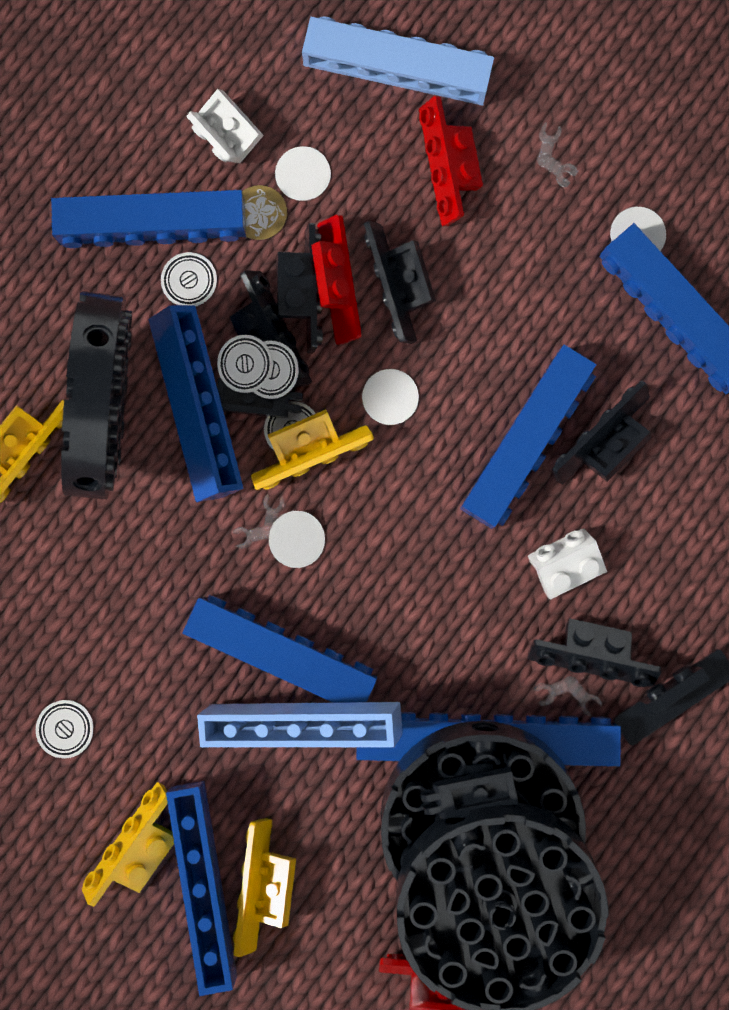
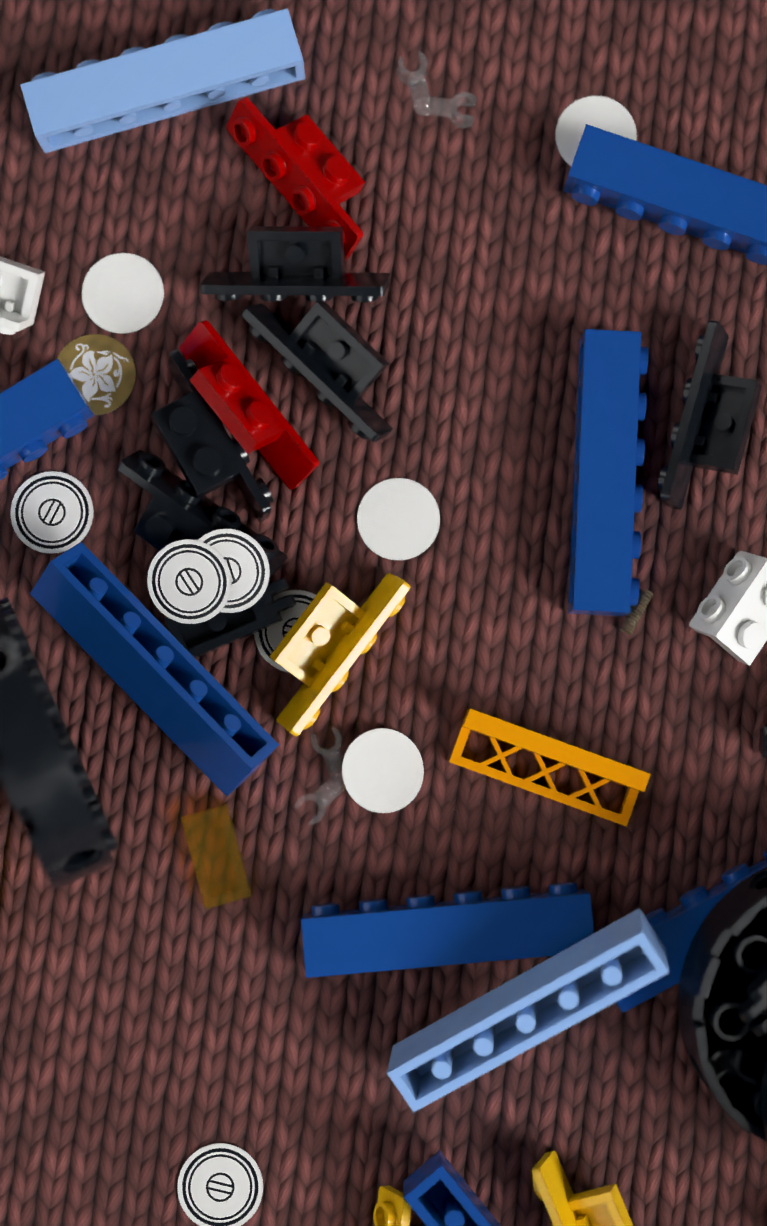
camera: 30 degrees left, 0 degrees up
(171, 534) = (216, 856): none -> clear yellow tile
(404, 583) = (555, 750): none -> light orange fence
(413, 210) = (296, 263): none -> black bracket
(509, 527) = (640, 612): none -> dark tan leg

